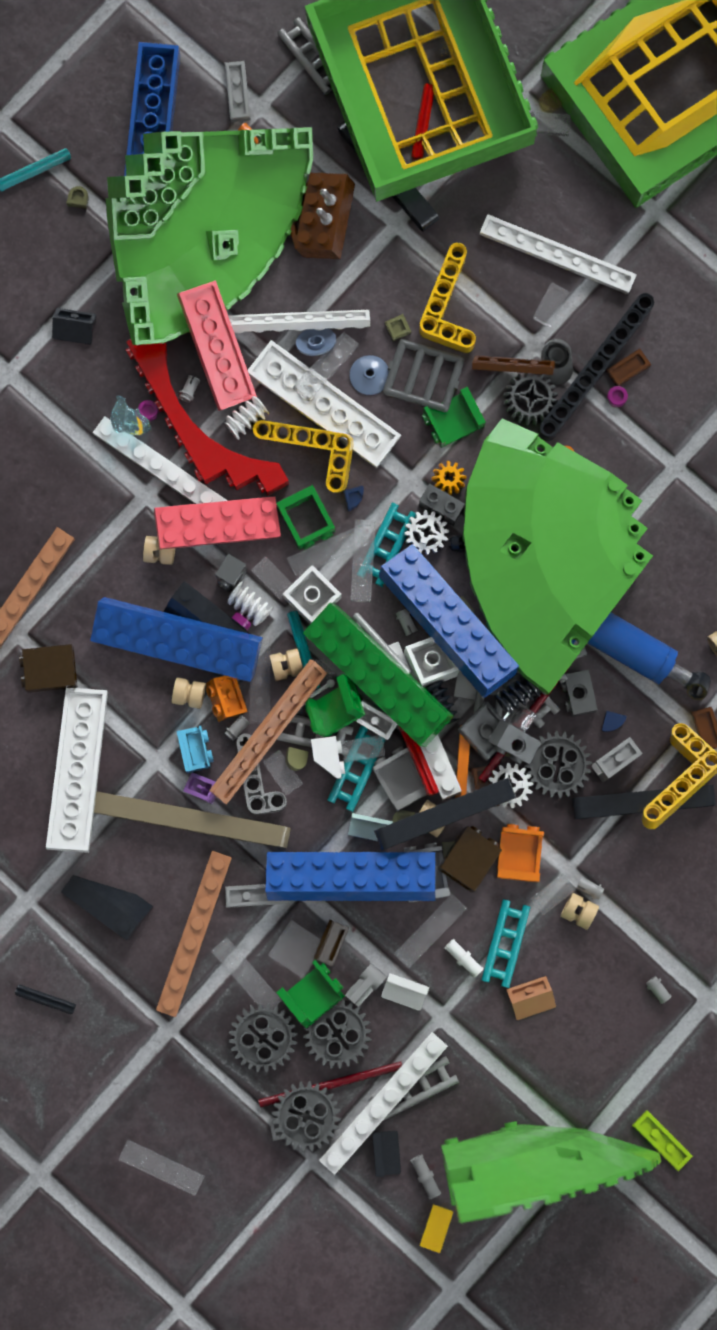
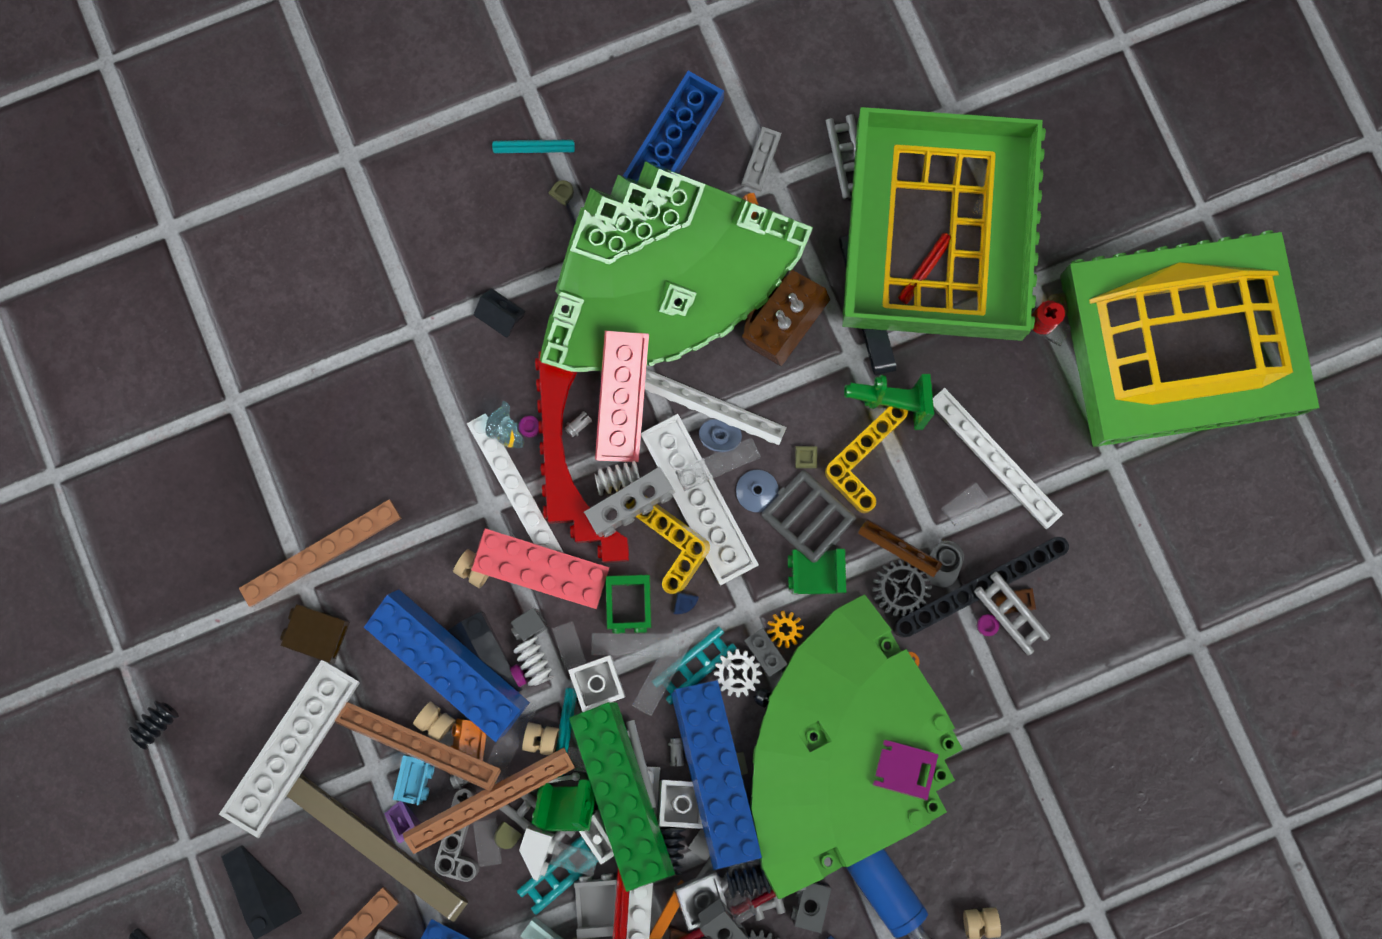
camera: 30 degrees right, 0 degrees up
(185, 717) = (418, 746): none -> nougat plate
(280, 400) = (598, 514): none -> light grey brick
(468, 234) = (917, 399): none -> green piece
(546, 114) = (1048, 317): none -> red piece
(599, 534) = (902, 768): none -> magenta container
(621, 380) = (998, 612): none -> light grey bar

